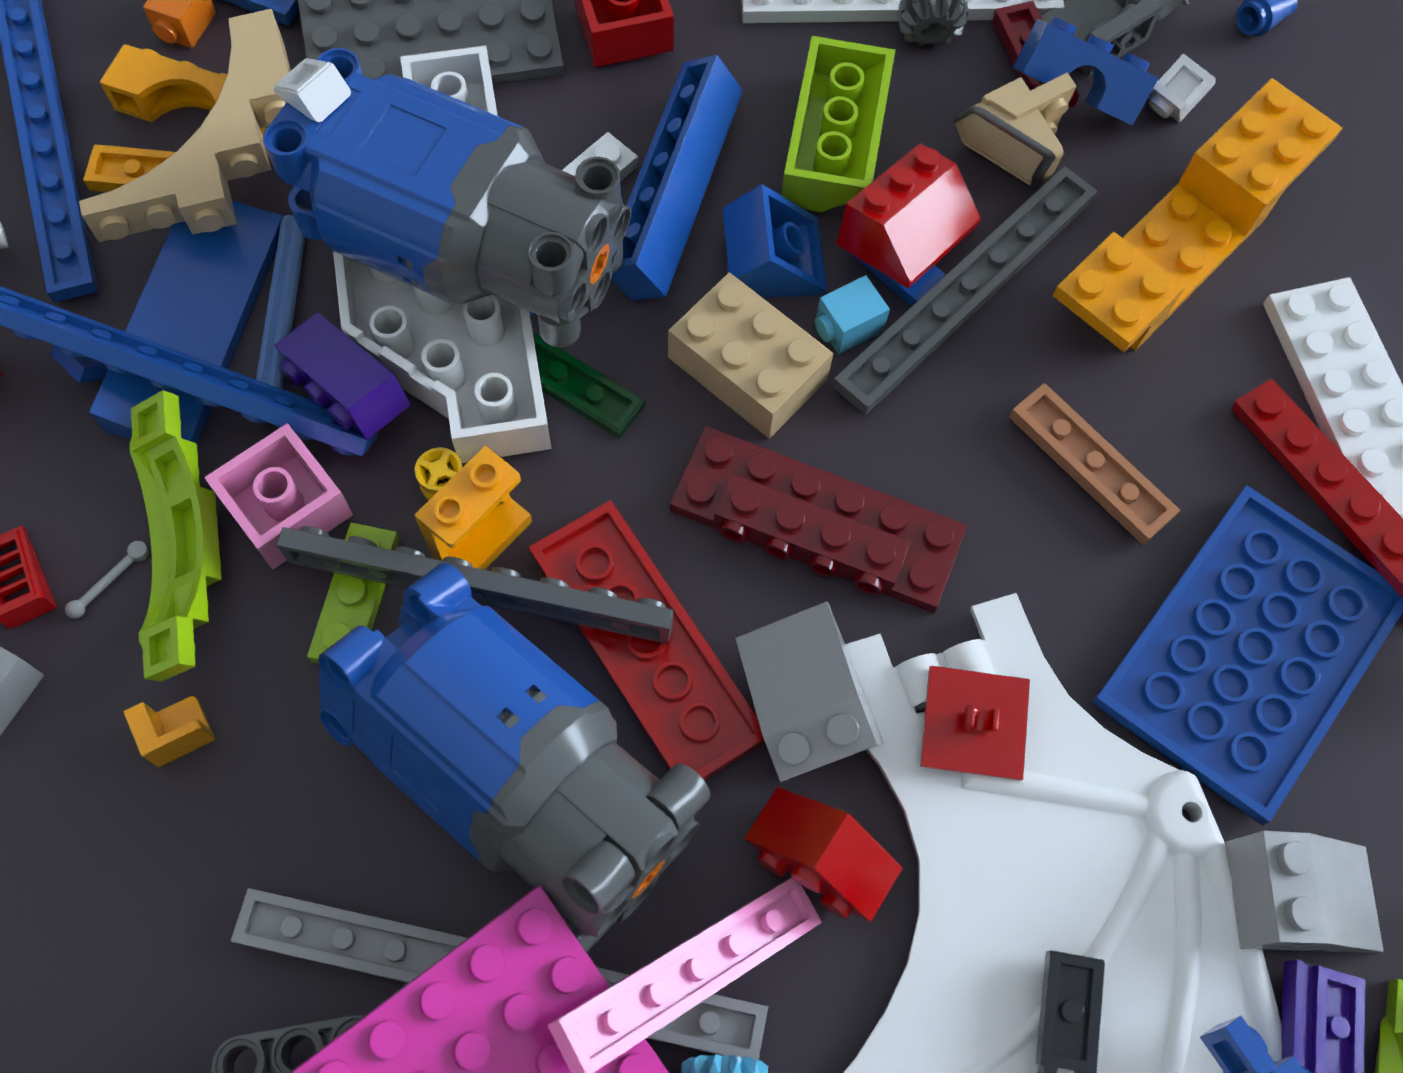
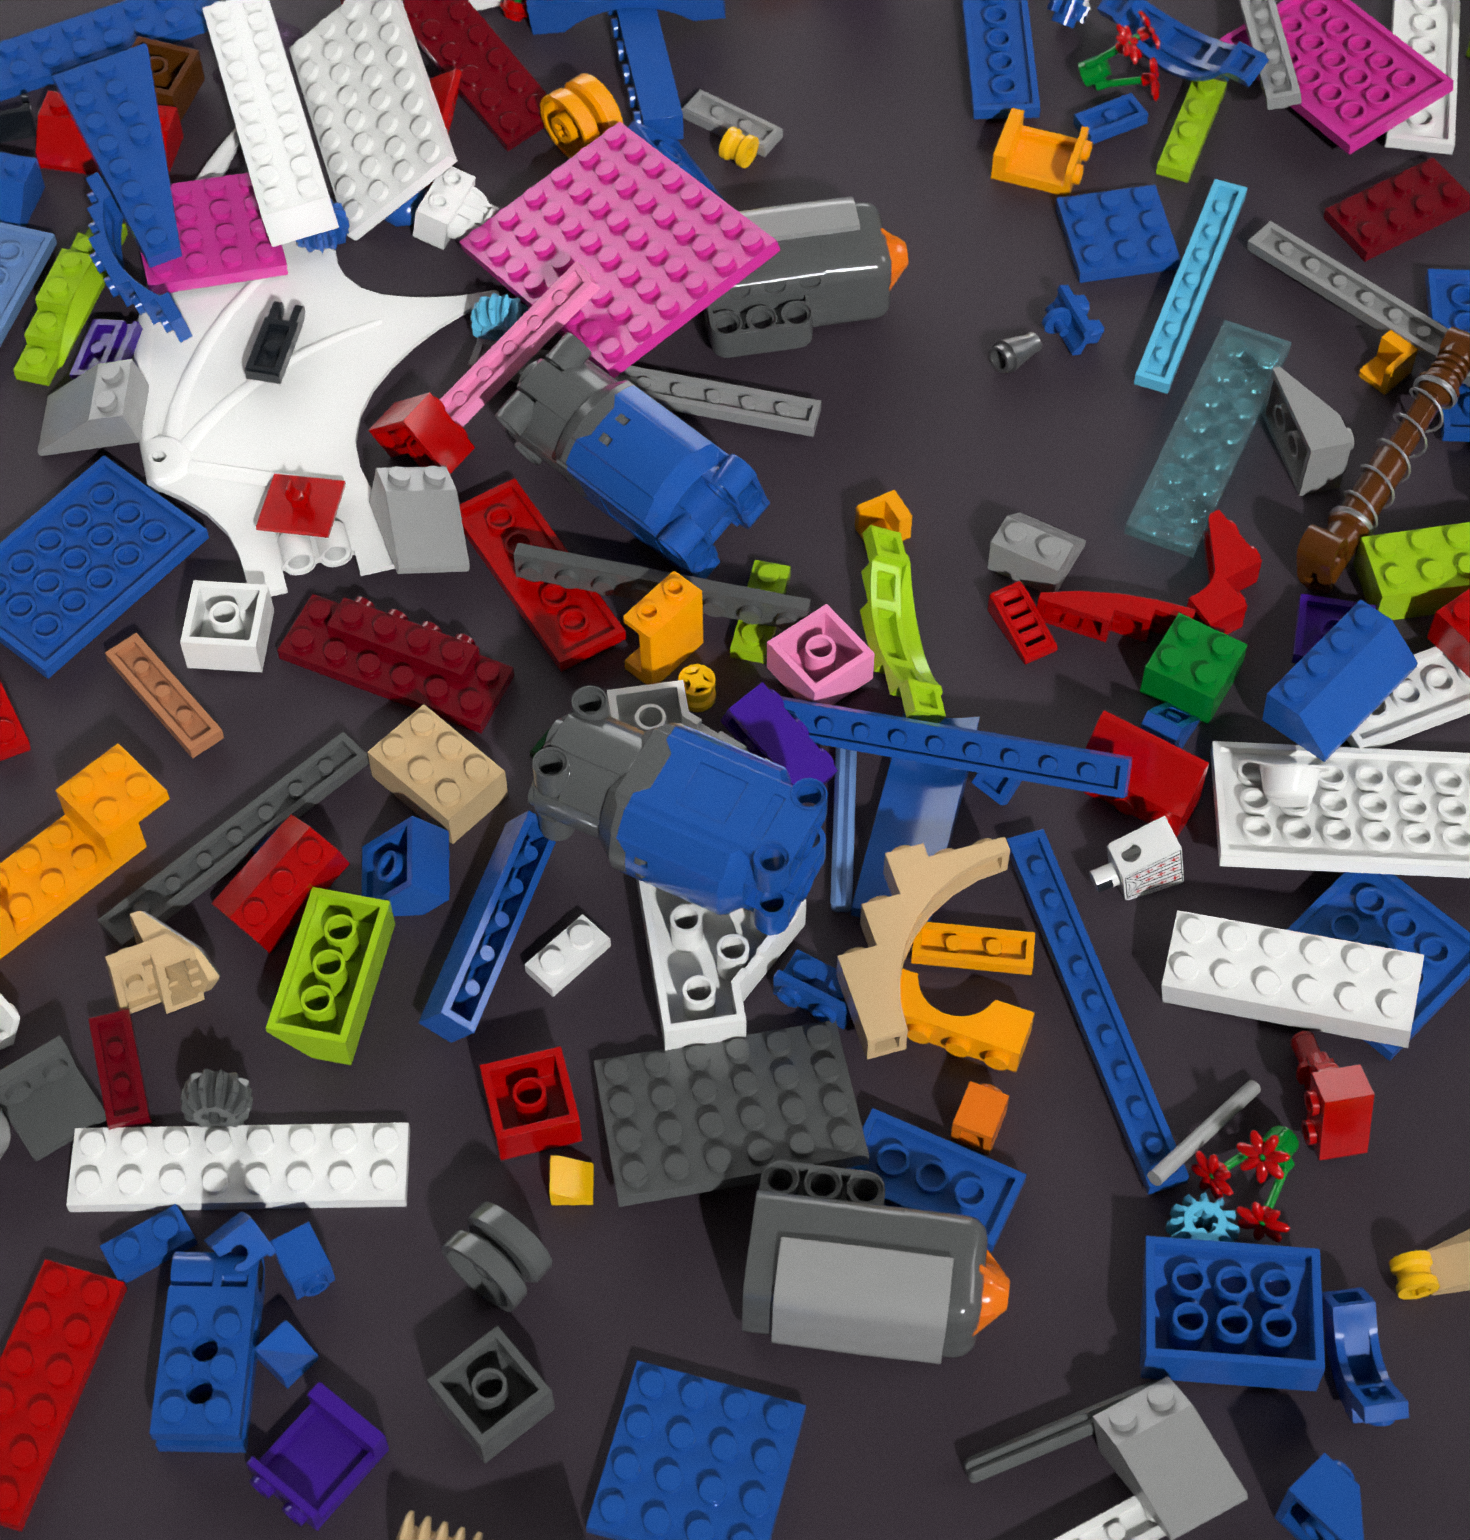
camera: 175 degrees left, 10 degrees down
(136, 551) = (933, 645): light grey hinge -> none
(313, 88) = (791, 828): white slope -> none
(851, 315) = (345, 810): medium azure brick -> none
(1036, 538) = (227, 626): none -> white brick
(1118, 84) = (101, 1019): blue arch -> none

